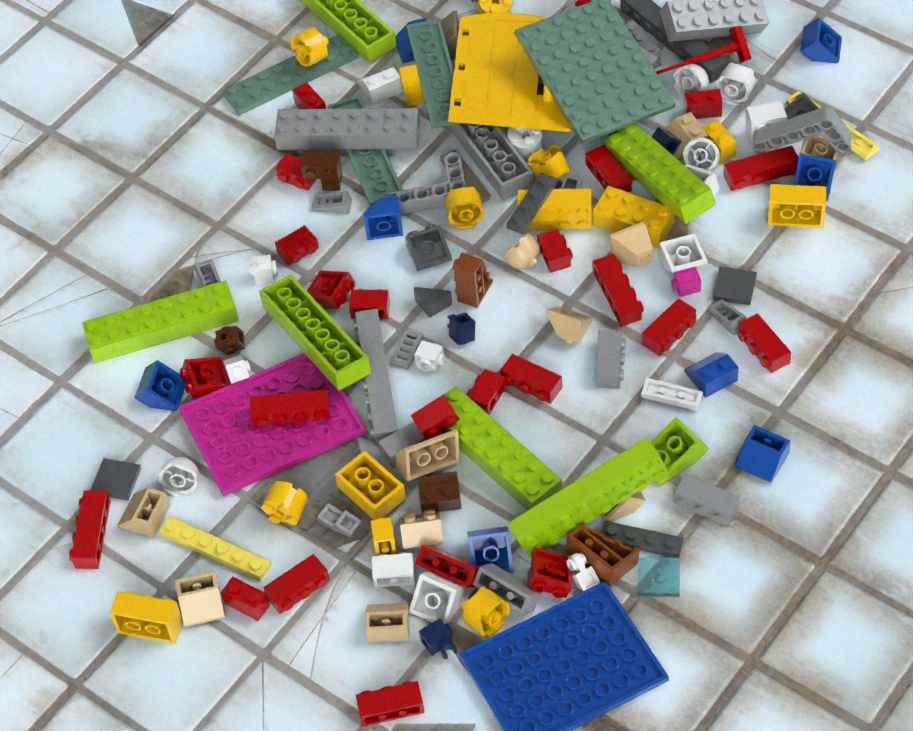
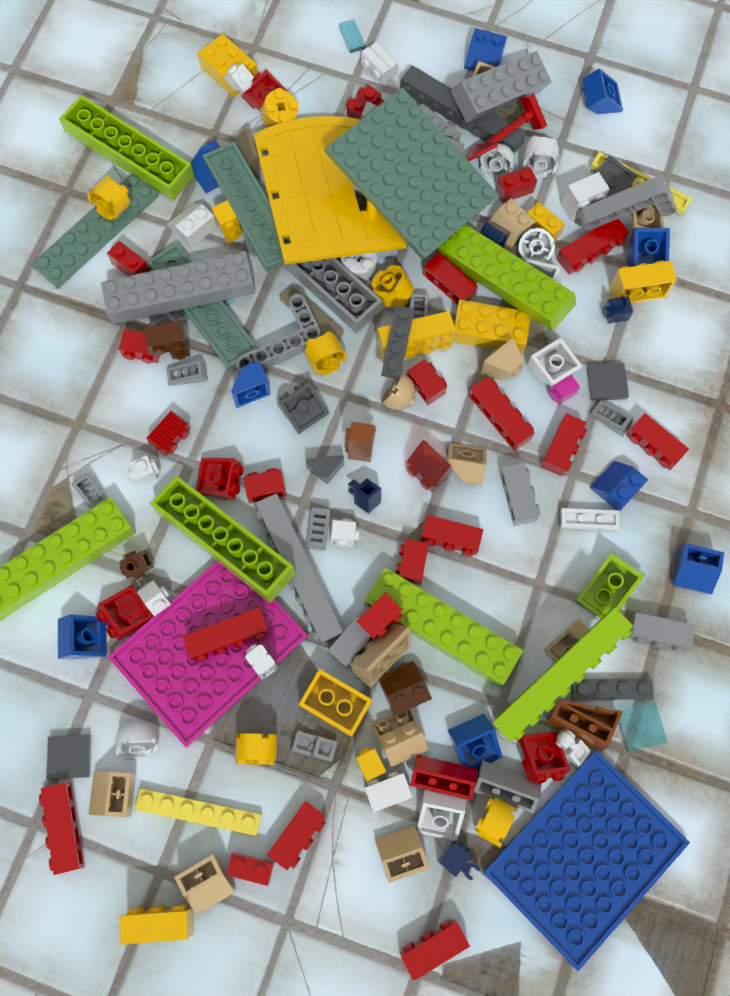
camera: 25 degrees left, 20 degrees up
(313, 432) = (261, 661): none -> white brick
(528, 316) = (428, 467): none -> clear red slope
(766, 225) = (617, 309): none -> dark blue brick

